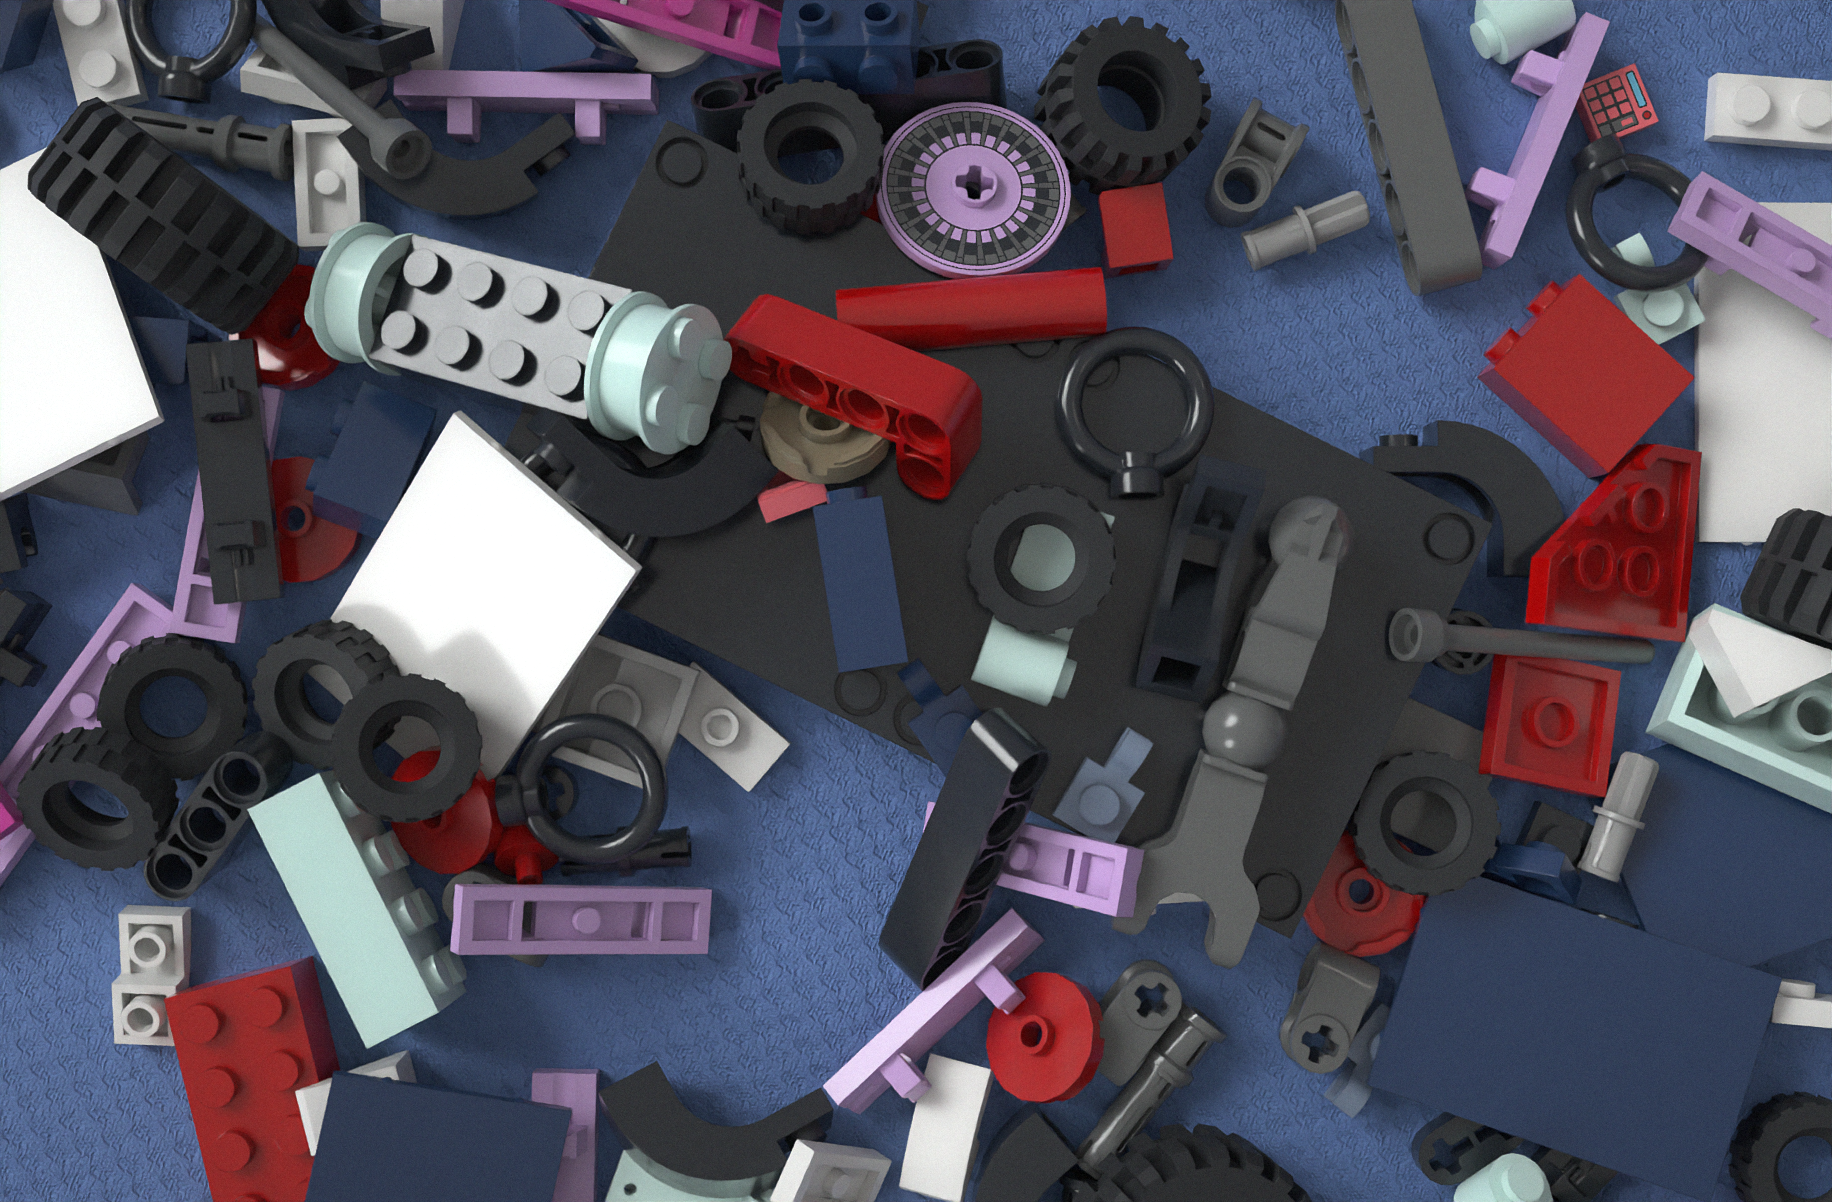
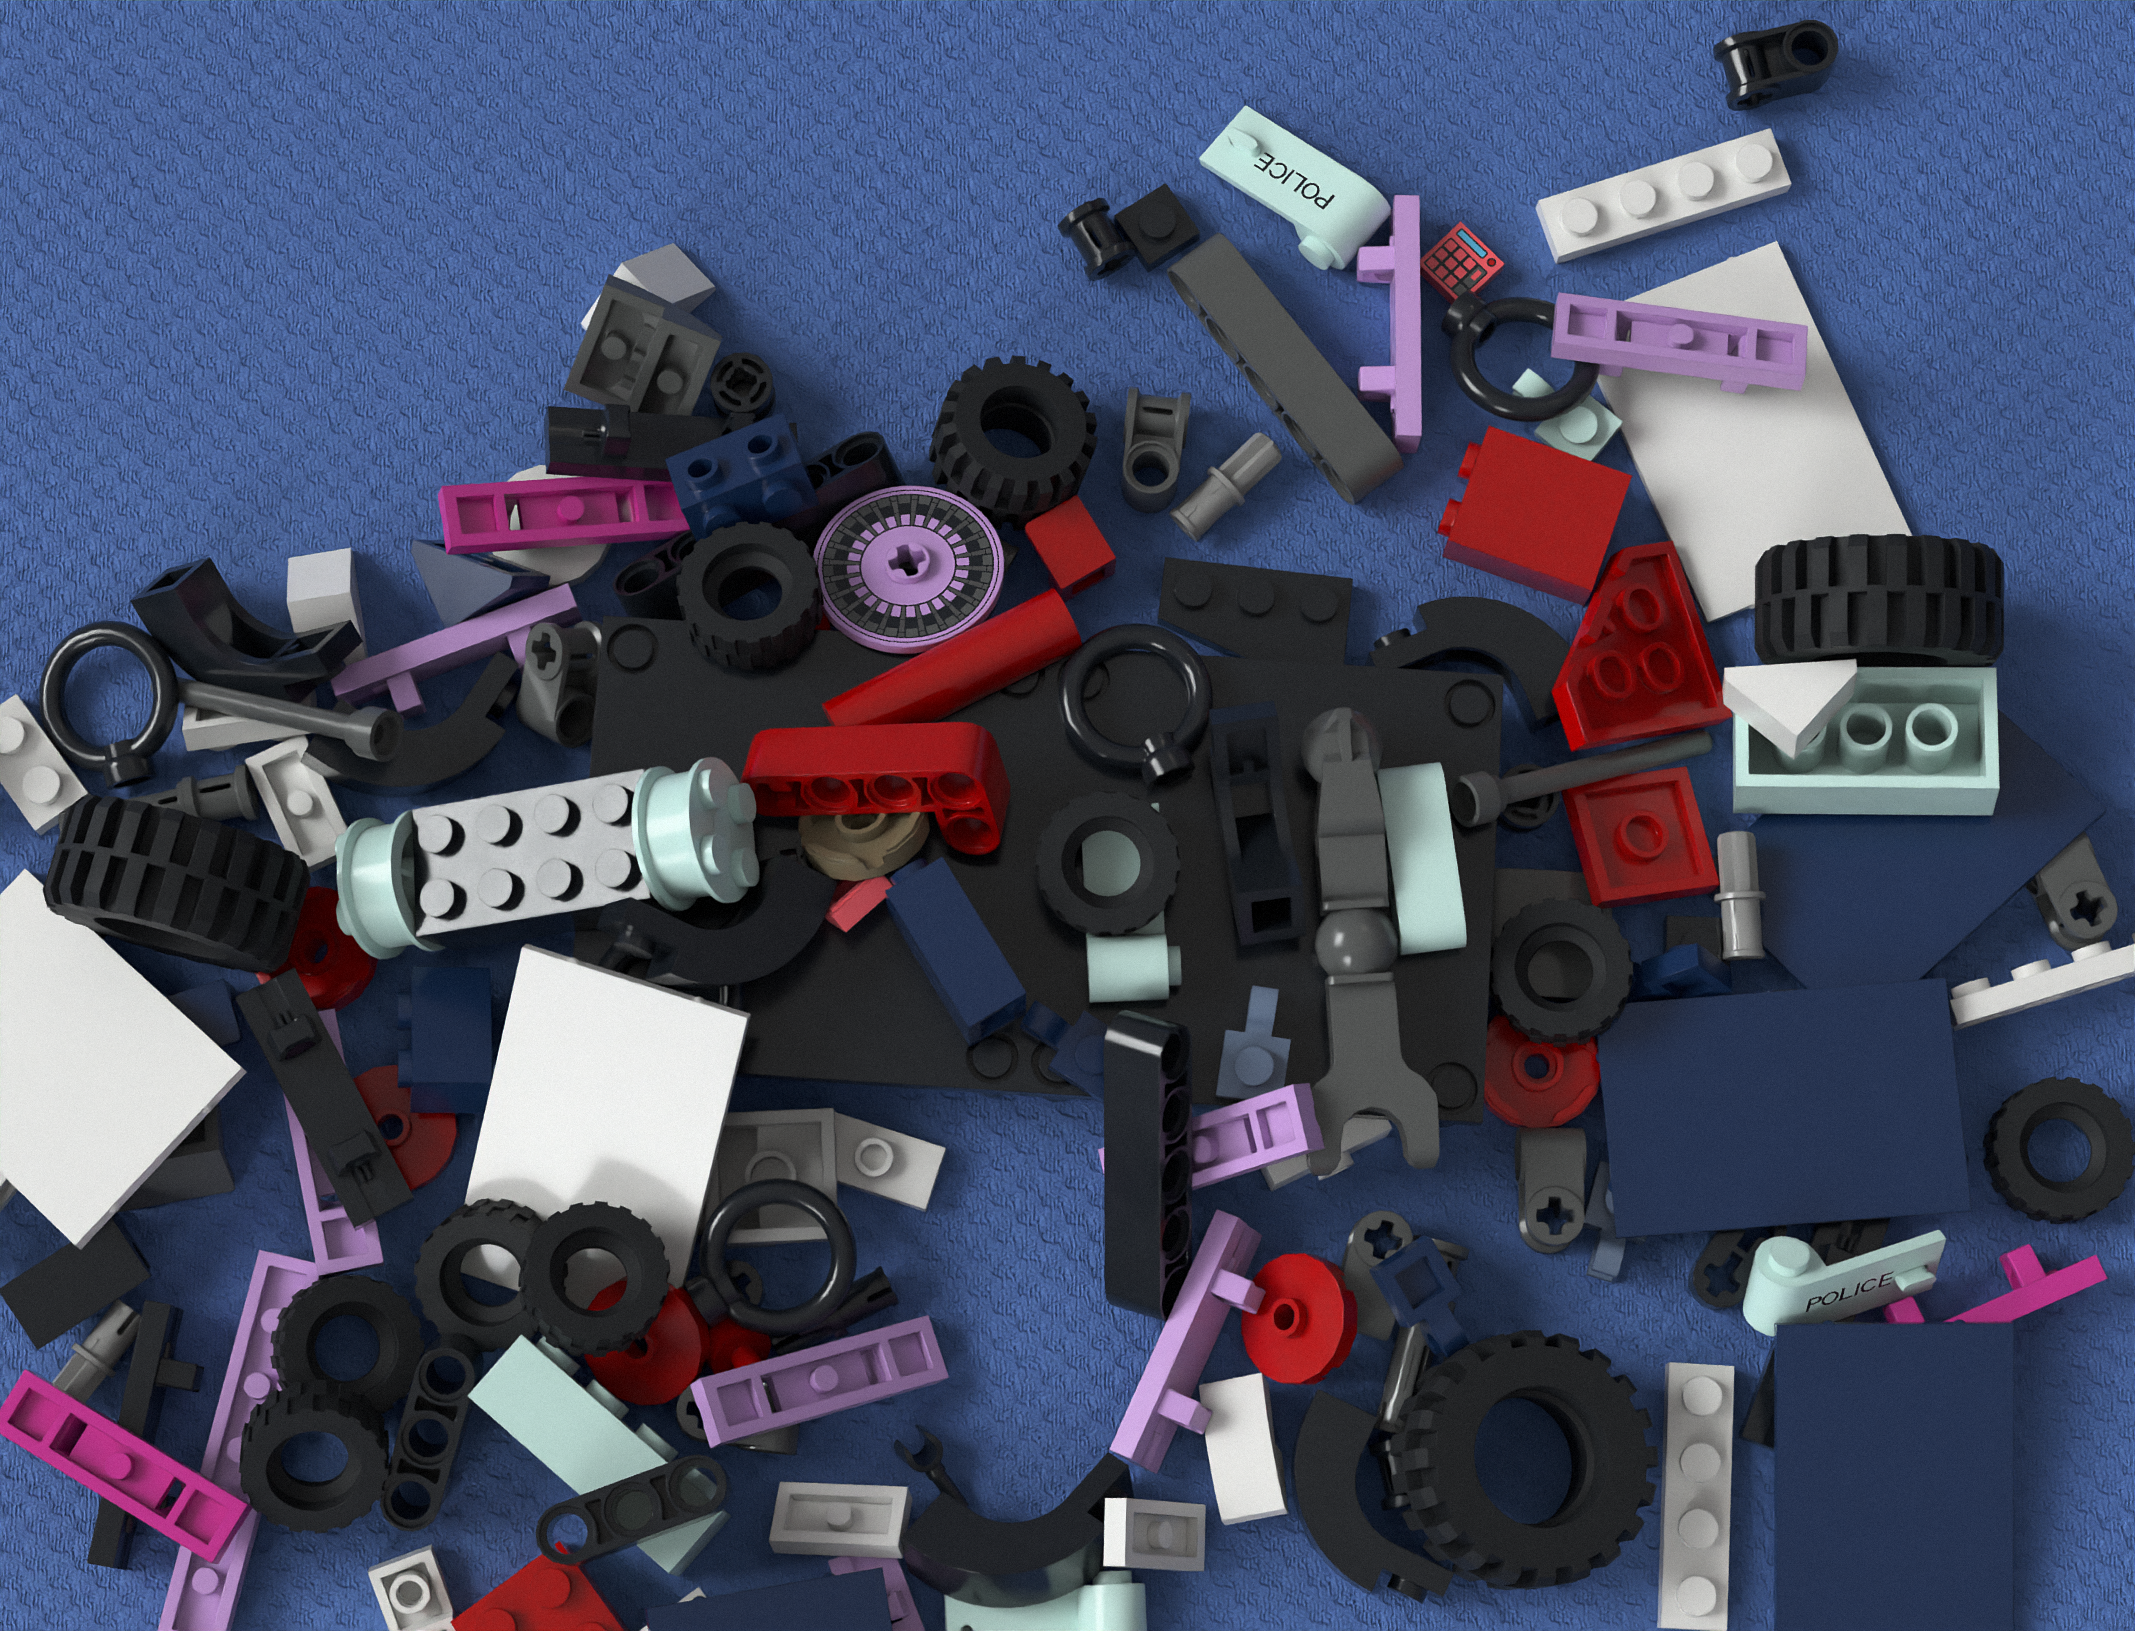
camera: 30 degrees left, 10 degrees down
(319, 994) = (600, 1506): none -> black beam
(557, 1043) = (840, 1519): none -> white plate
(607, 164) = (561, 682): none -> dark grey piece
(659, 1020) = (929, 1462): none -> black hand
(1164, 1065) = (1418, 1290): none -> dark blue plate
(1284, 362) = (1257, 610): none -> black wing
(1342, 674) = (1421, 859): none -> light aqua beam

